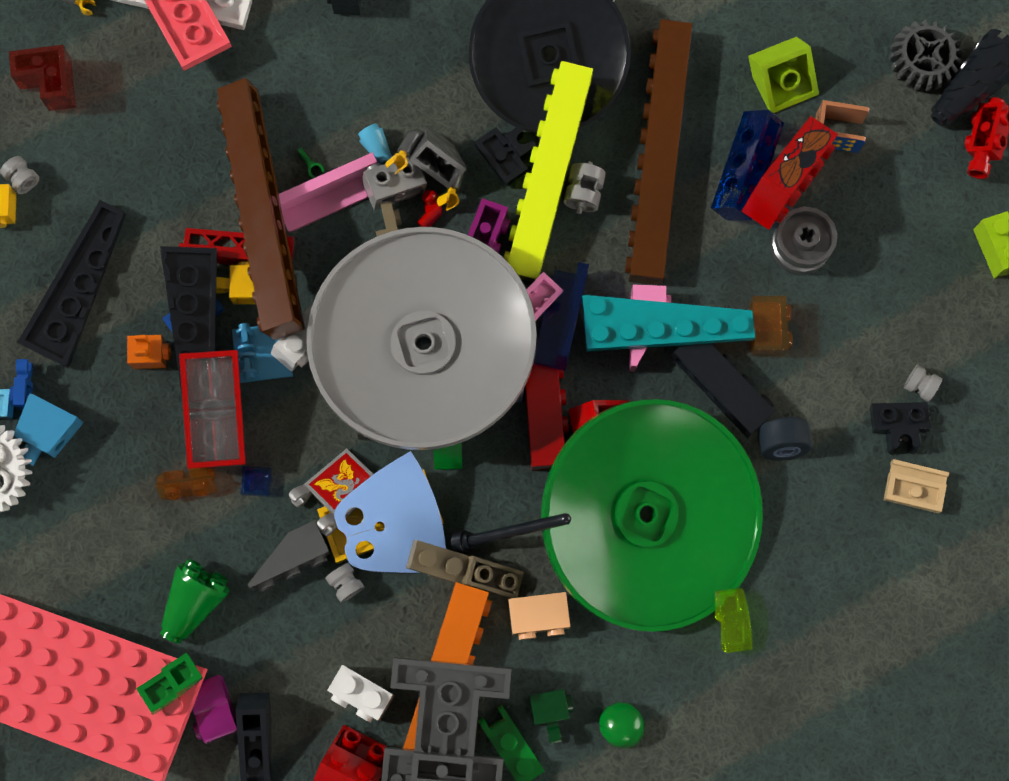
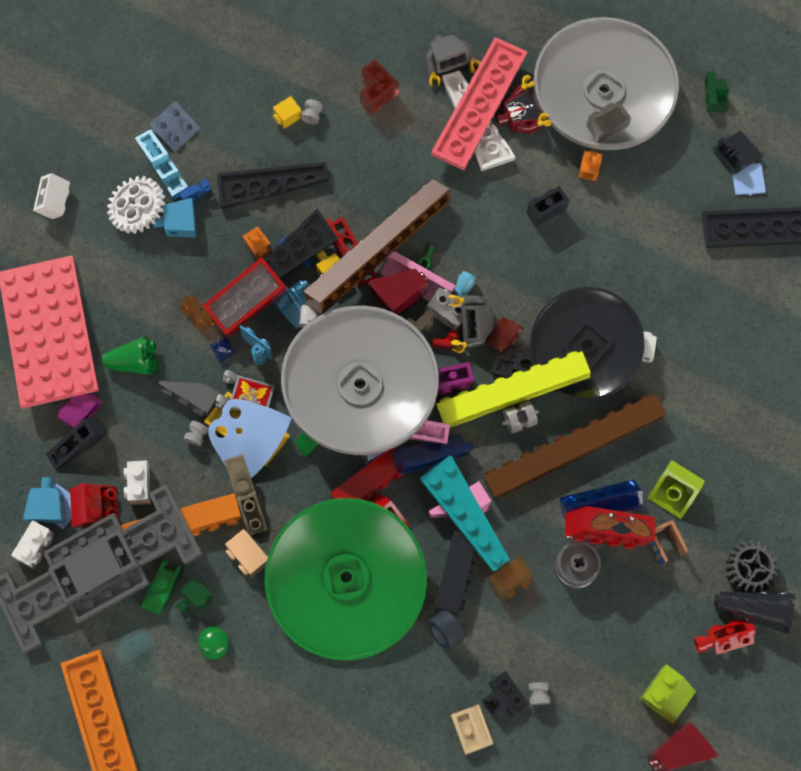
camera: 55 degrees right, 5 degrees down
(169, 684) = (76, 374): green slope -> none
(292, 430) = (261, 348): none -> dark azure hinge
(334, 221) = (399, 290): none -> dark red slope
(466, 541) = (263, 485): black piece -> none
(470, 138) = (503, 334): none -> clear red piece
(734, 619) = (316, 669): clear neon green slope -> none

